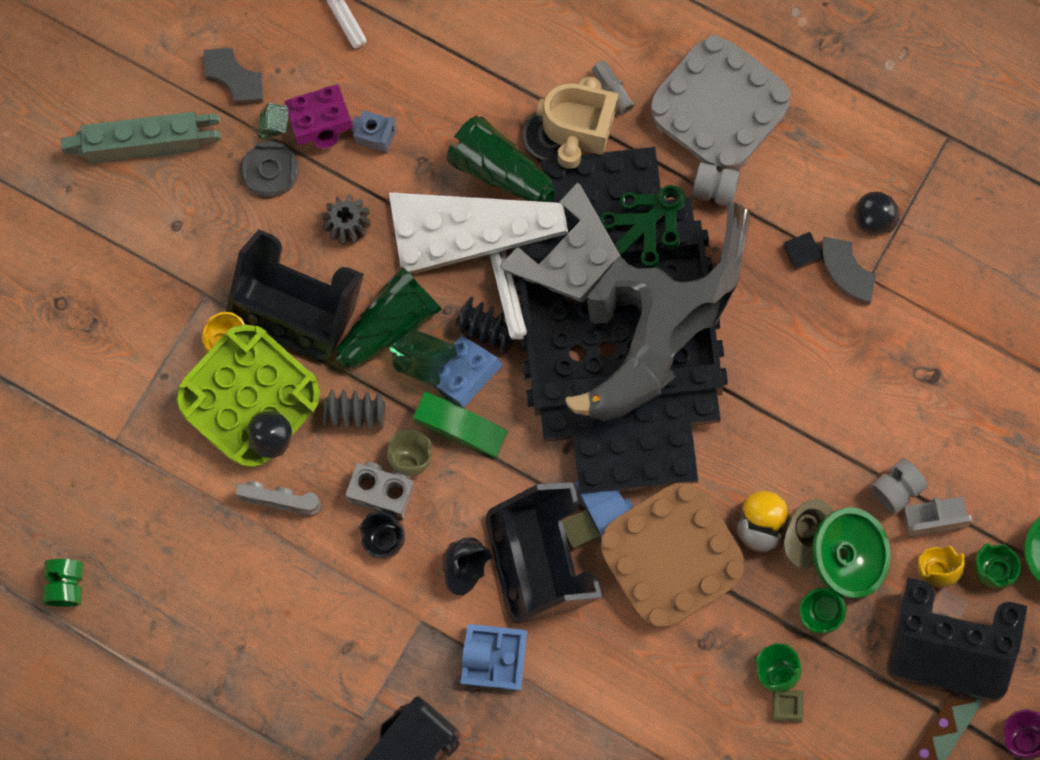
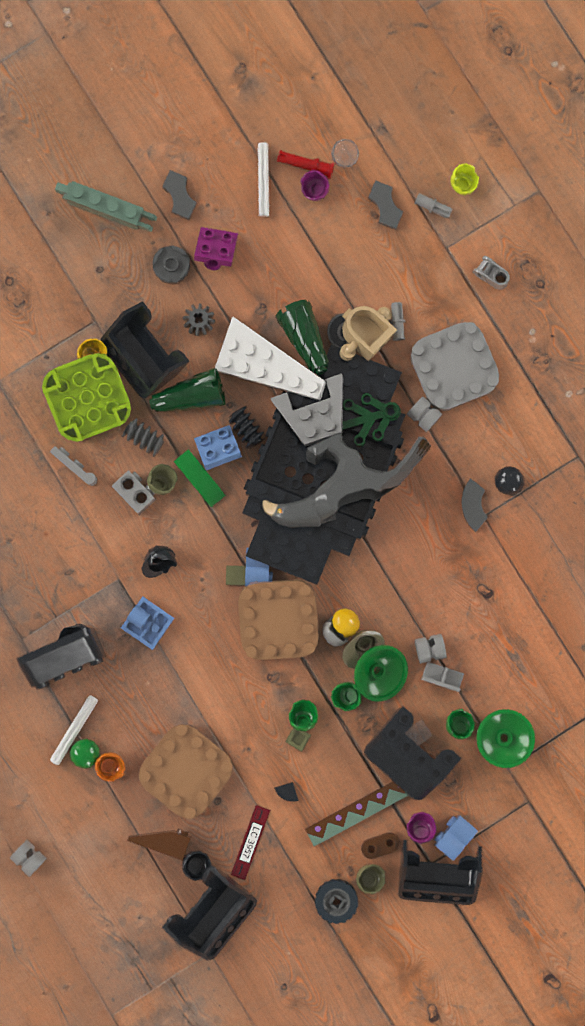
camera: 20 degrees right, 10 degrees up
(269, 434) = (86, 426): black hair -> none
(273, 120) = (187, 236): clear green slope -> none
(380, 137) = (246, 279): sand blue brick -> none
(382, 535) = (121, 519): black hair -> none
(421, 356) = (198, 426): clear green bracket -> none
(508, 297) = (266, 420): white axle -> none
(535, 554) = (201, 578): black windscreen -> none
(802, 251) = (453, 480): black tile -> none
(941, 566) = (428, 707): yellow hair -> none

